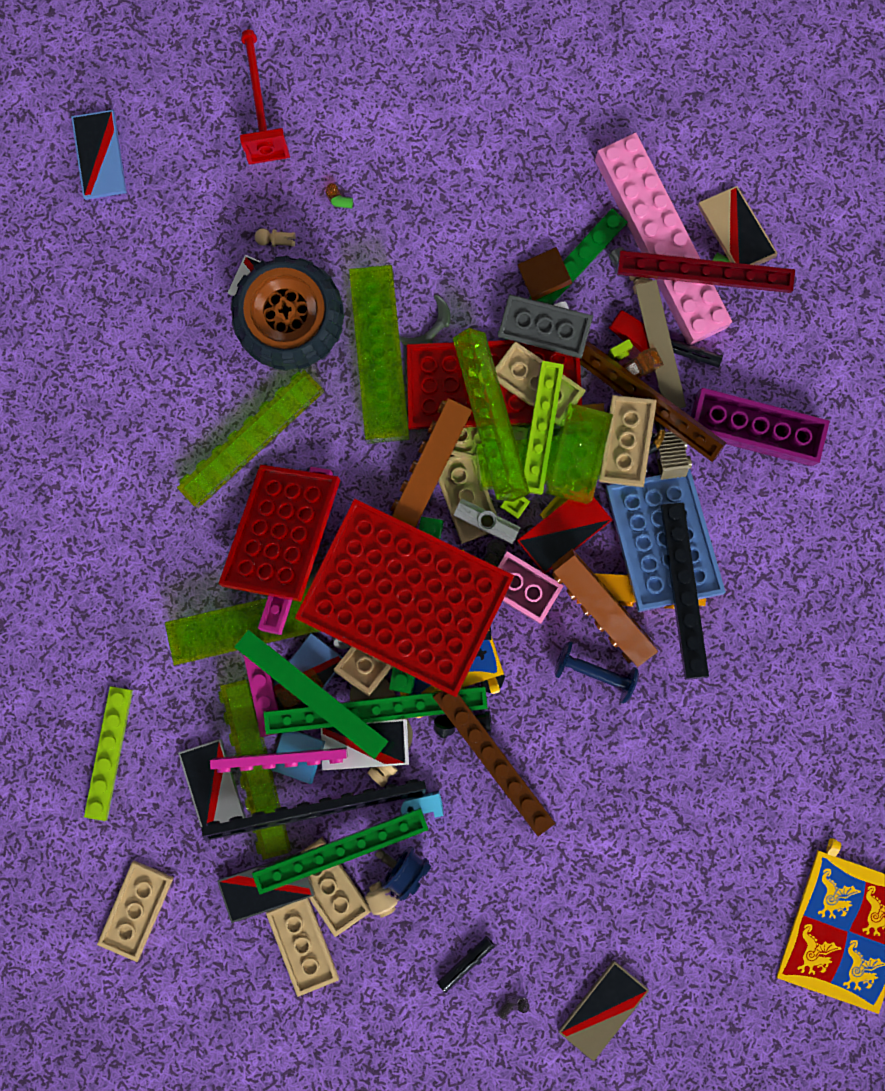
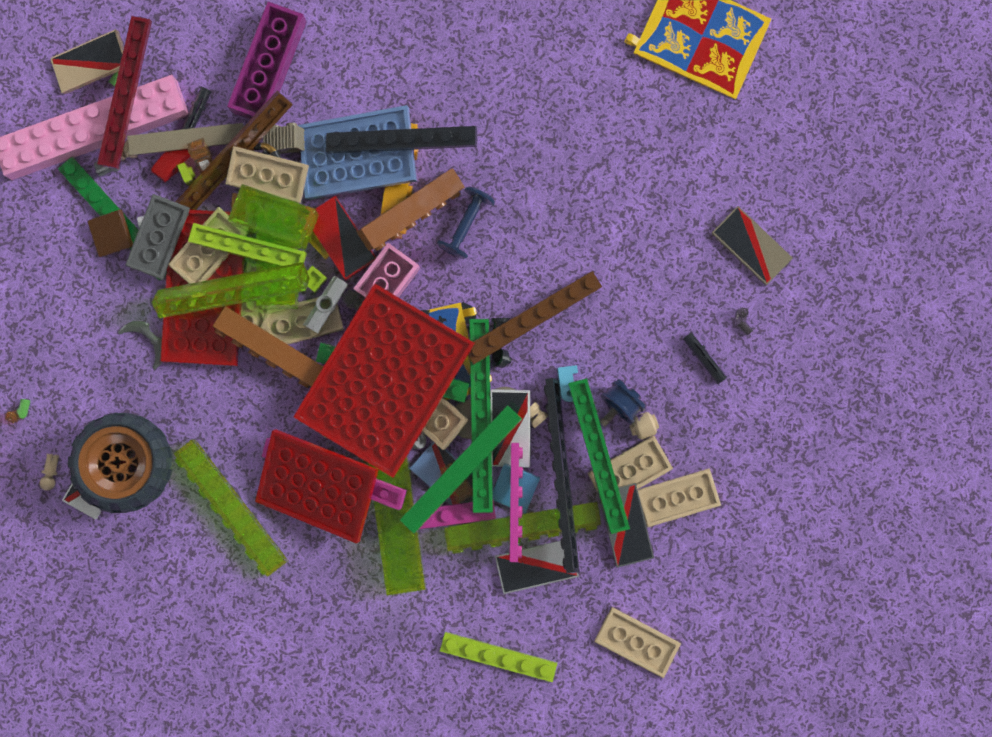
camera: 90 degrees left, 0 degrees up
(379, 354) = (166, 385): clear neon green brick -> none

